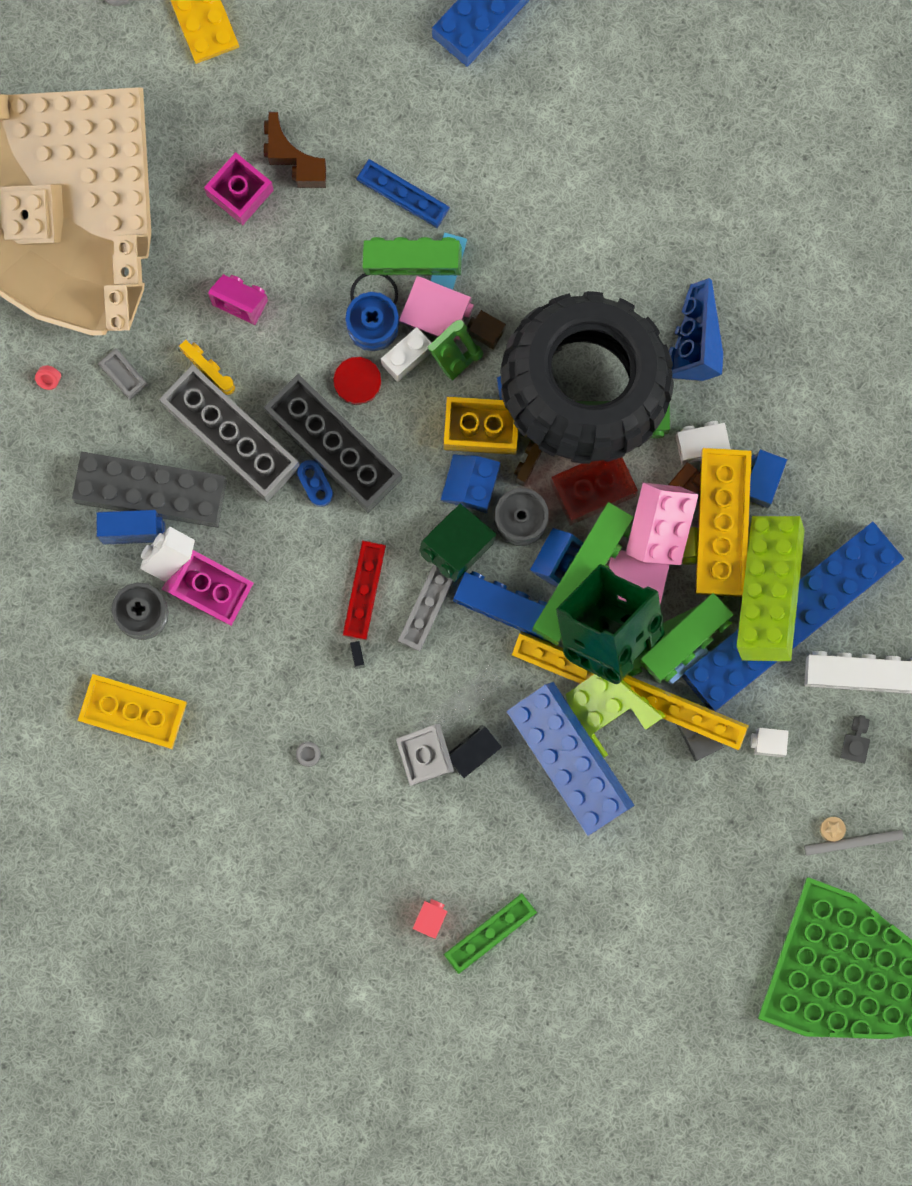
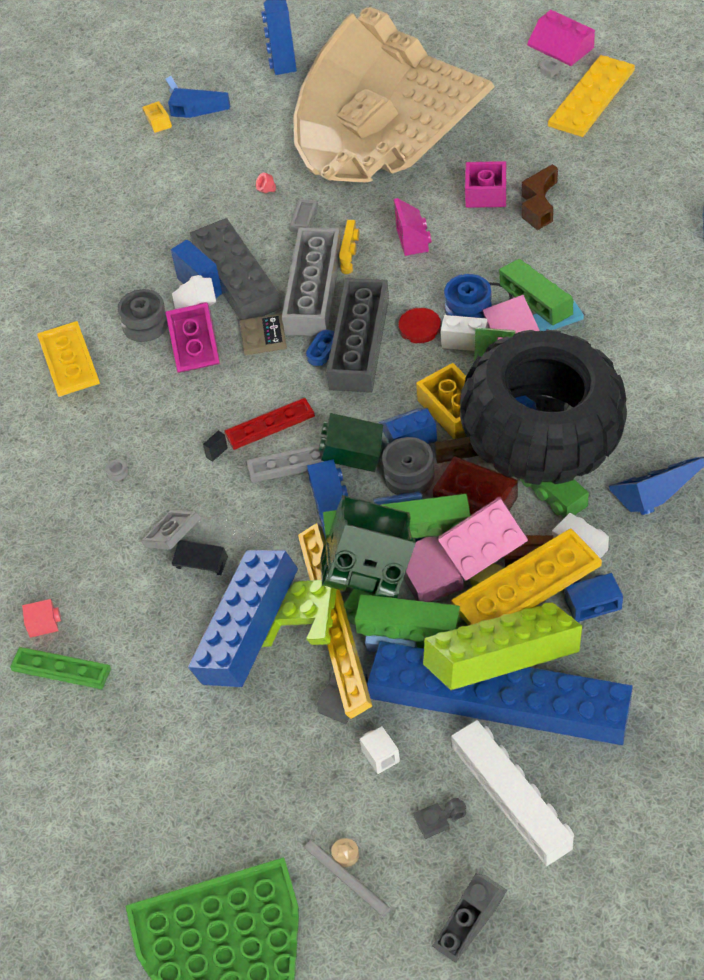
camera: 60 degrees right, 30 degrees down
(249, 520) = (263, 334): none -> dark tan plate
(403, 193) = (577, 266): blue tile -> none

